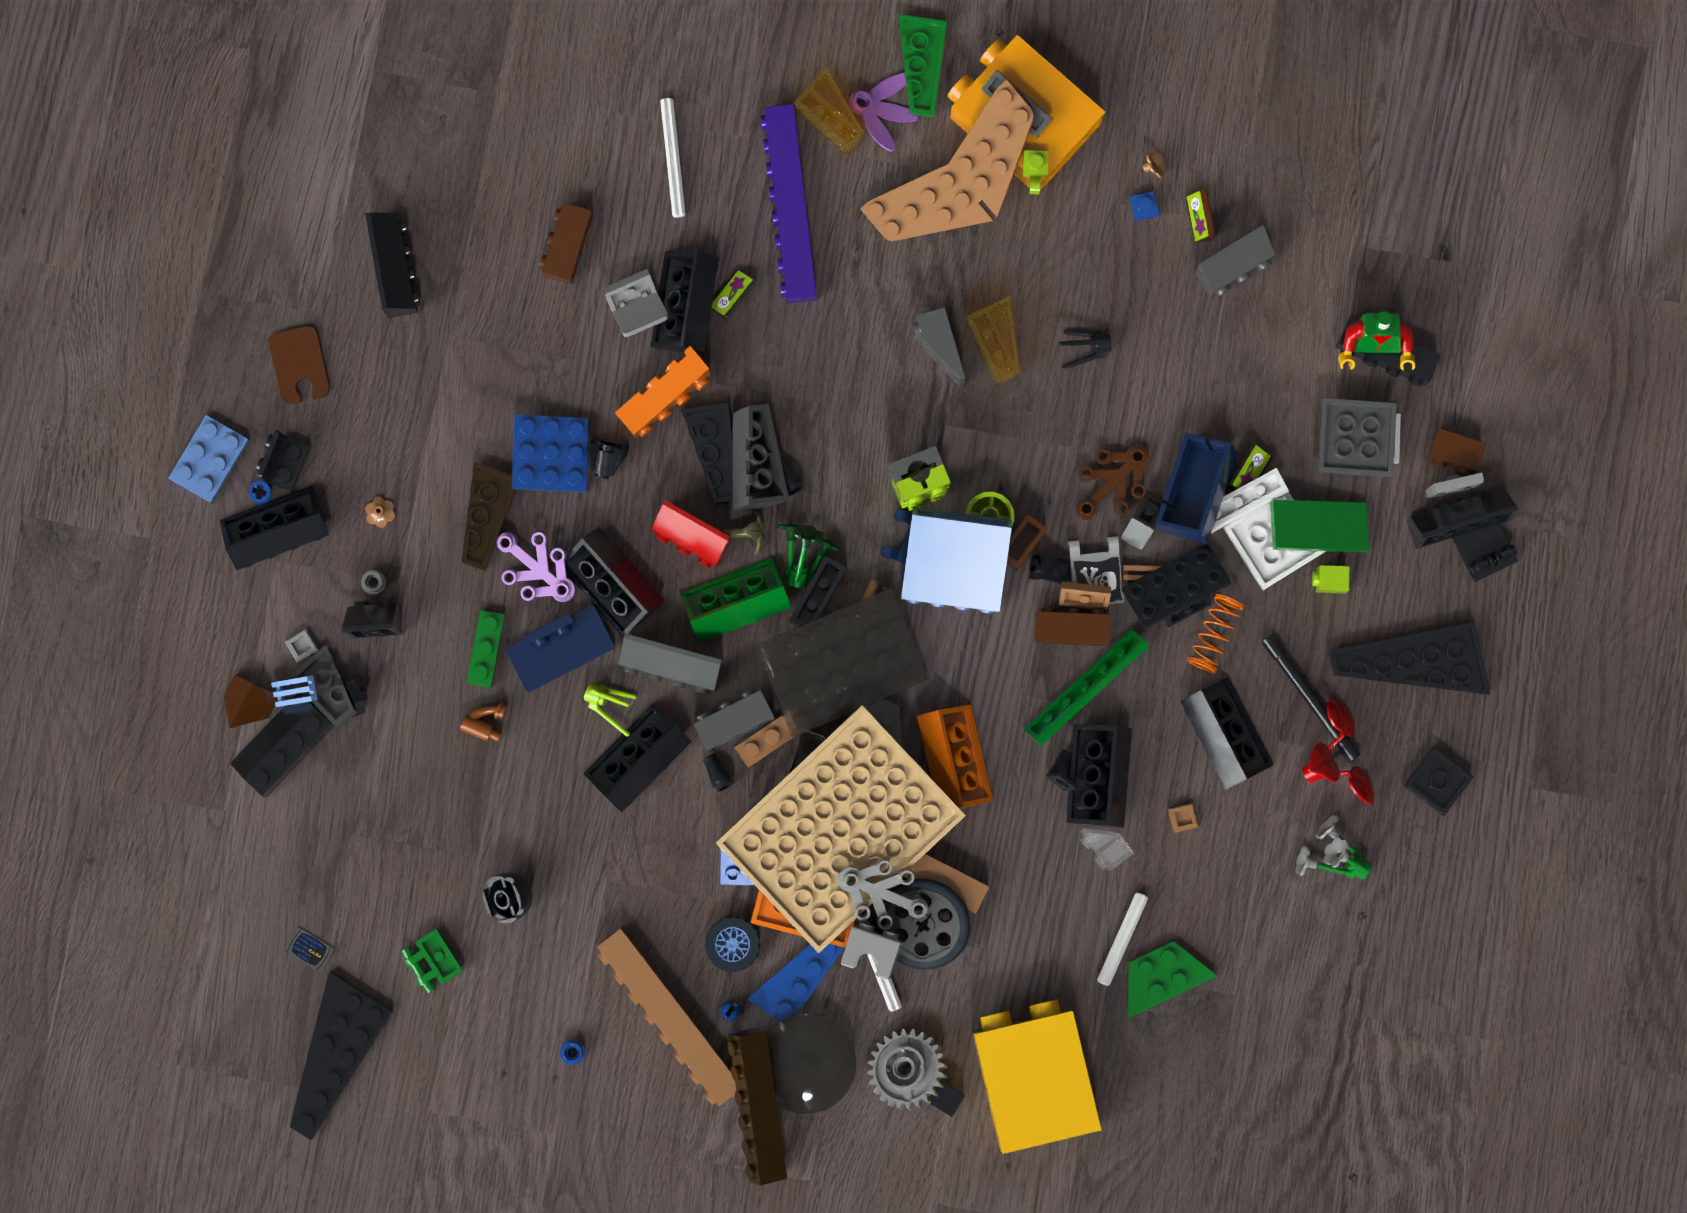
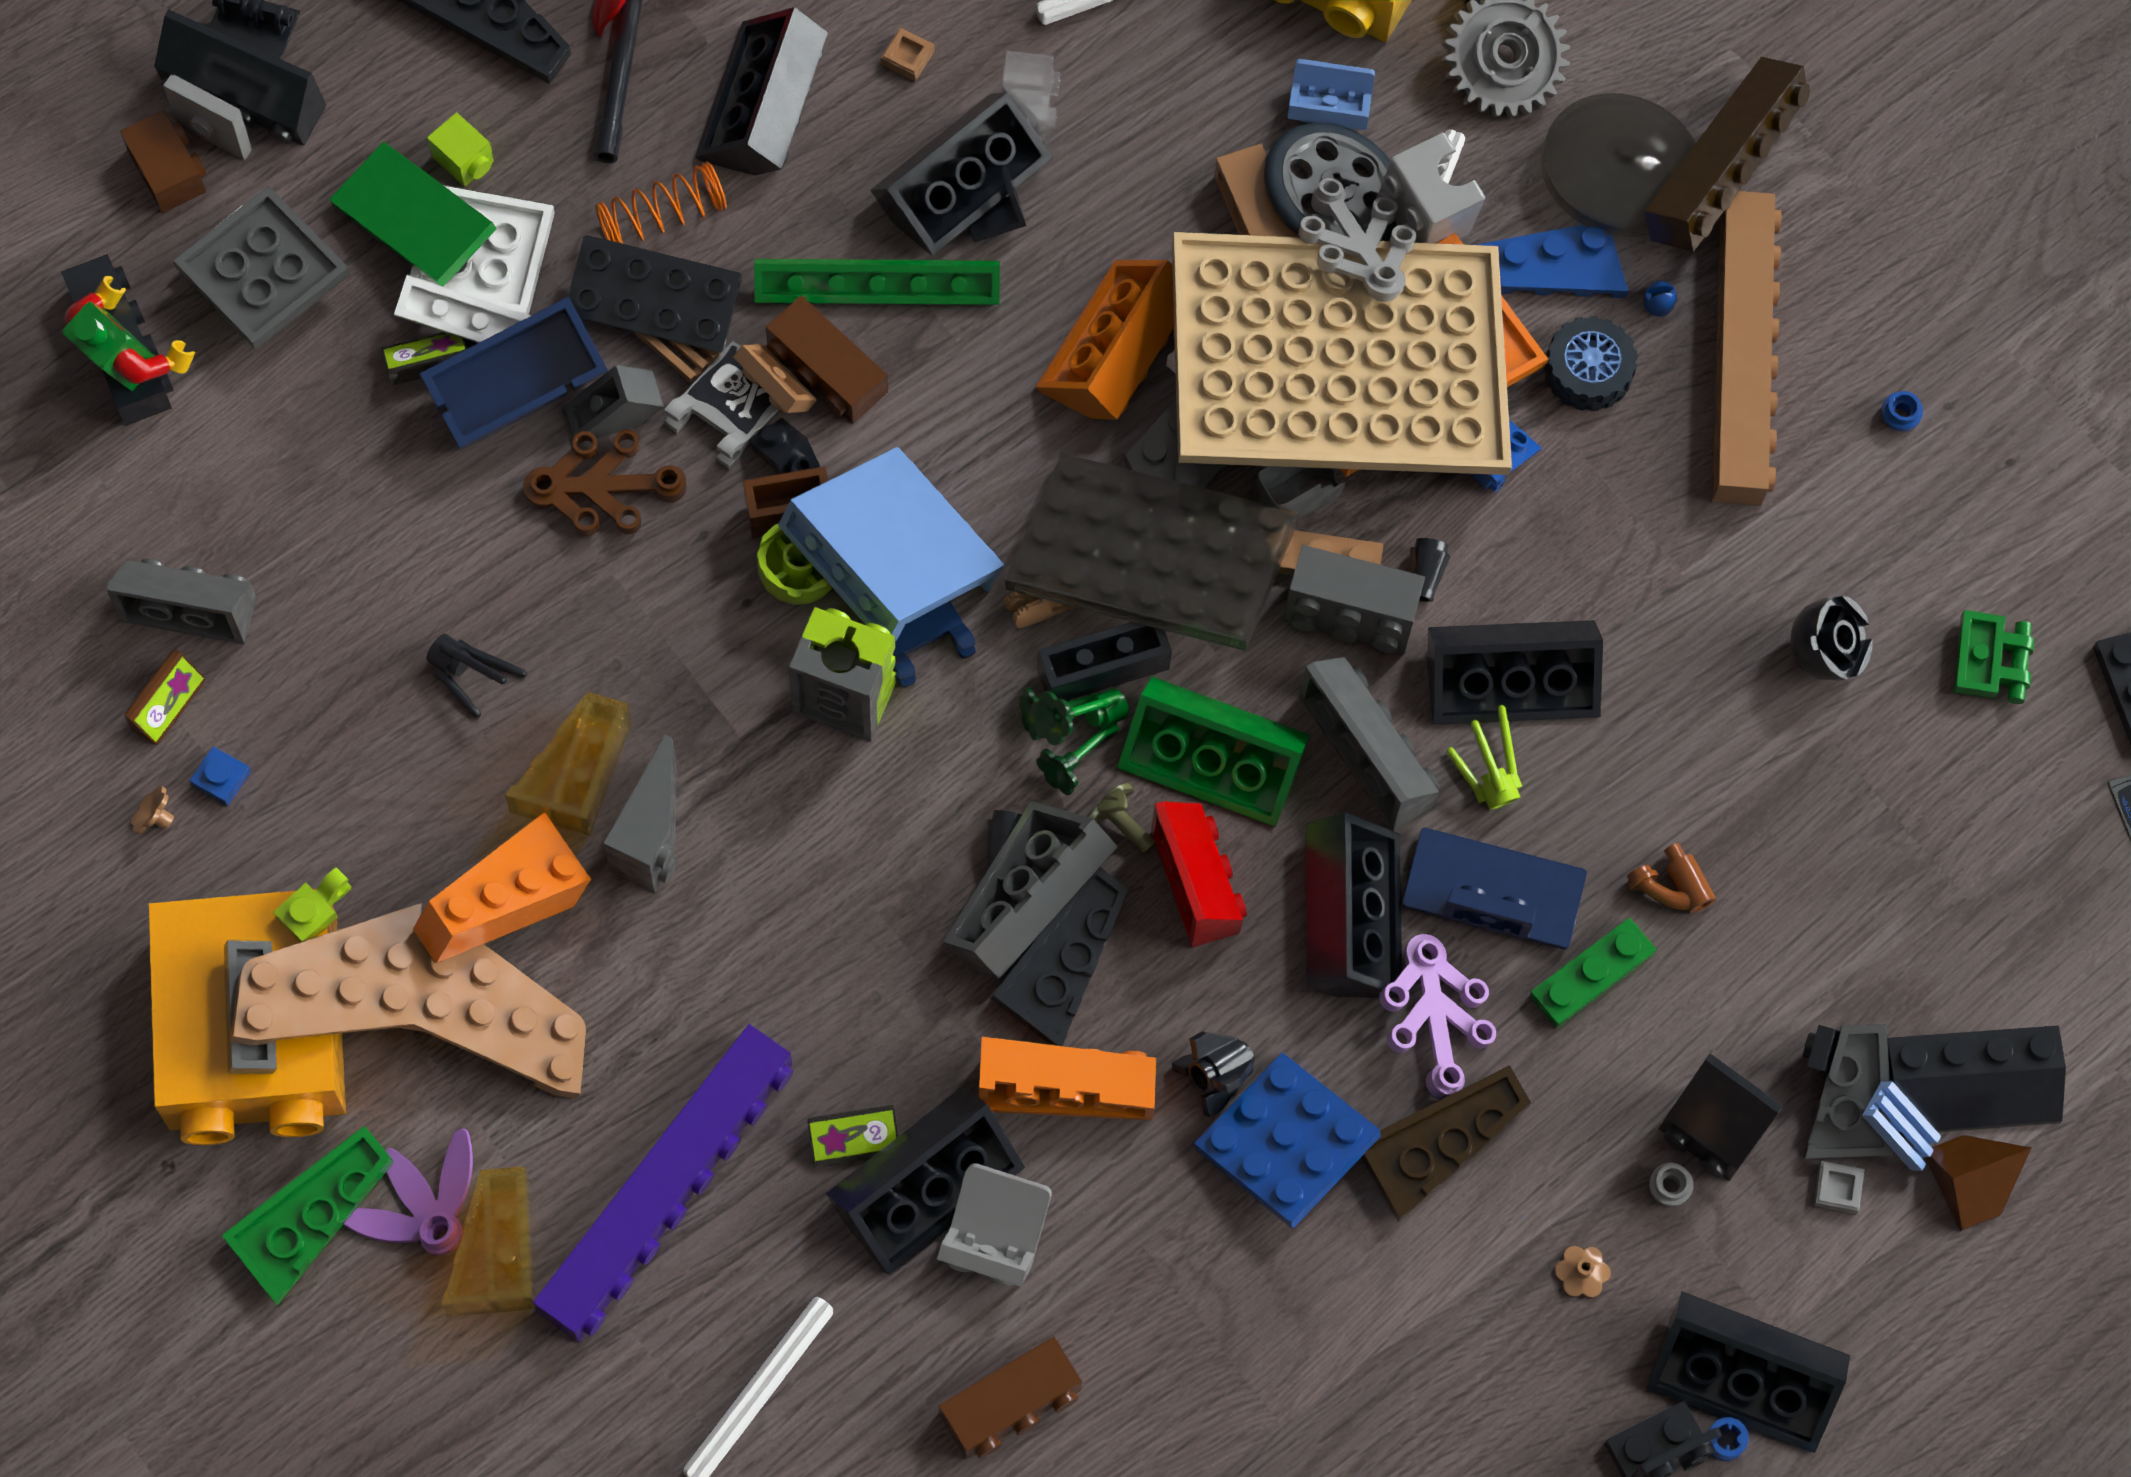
camera: 140 degrees left, 15 degrees down
(968, 264) = (506, 891): none -> orange wedge
(969, 973) = (1331, 94): none -> medium blue bracket

